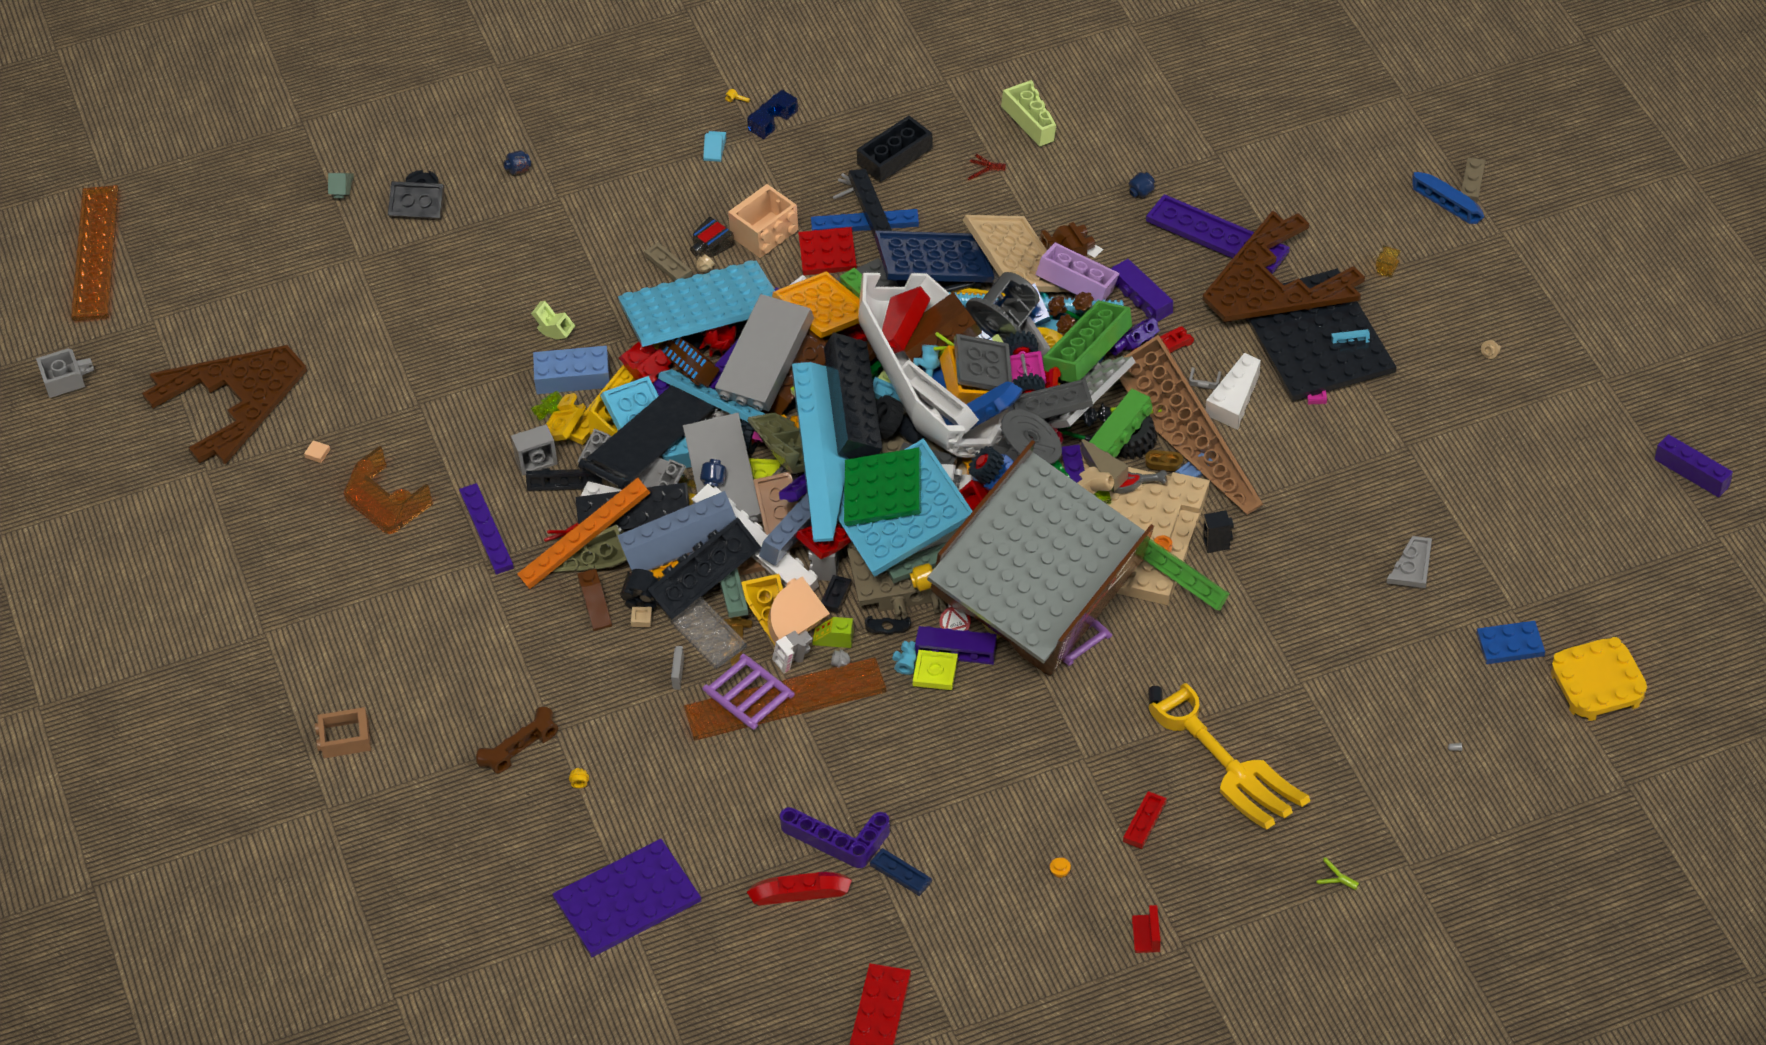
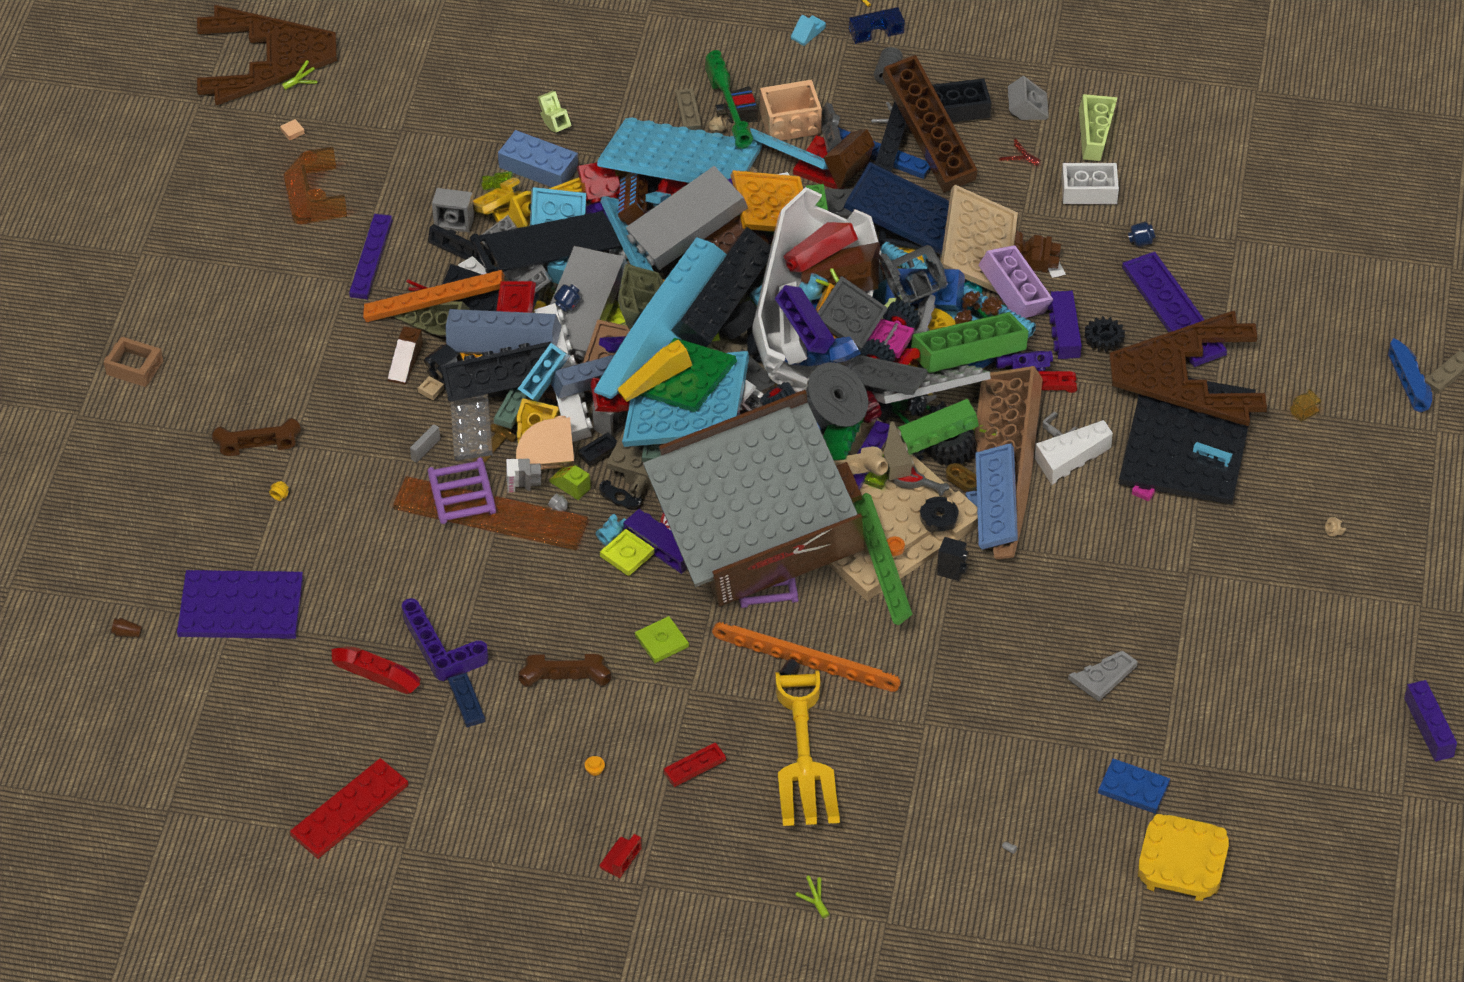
camera: 30 degrees right, 0 degrees up
(286, 403) = (300, 75): none -> lime plant
(539, 975) = (125, 628): none -> reddish brown cone
(670, 495) = (516, 296): none -> red plate
(674, 221) = (720, 78): none -> green bar
(716, 349) = (656, 197): none -> medium azure plate
(751, 547) = (543, 371): none -> medium azure brick
(786, 254) = (788, 149): none -> medium azure tile
(812, 144) = (888, 56): none -> dark grey piece
(814, 222) = (829, 127): none -> dark grey hinge
(849, 233) = (849, 156): none -> reddish brown slope
(857, 492) = (662, 366): none -> yellow wedge
(898, 174) = (929, 123): none -> reddish brown brick
(953, 118) = (1027, 100): none -> light grey slope
(957, 385) = (804, 319): none -> dark purple brick
(987, 784) = (591, 668): none -> reddish brown plate
(1026, 729) = (661, 639): none -> lime plate
(1065, 162) = (1089, 183): none -> white brick
(1161, 677) = (806, 656): none -> orange plate
(1178, 508) = (939, 523): none -> black plate
(1180, 282) = (1104, 334): none -> black gear
(1210, 460) = (996, 496): none -> medium blue plate

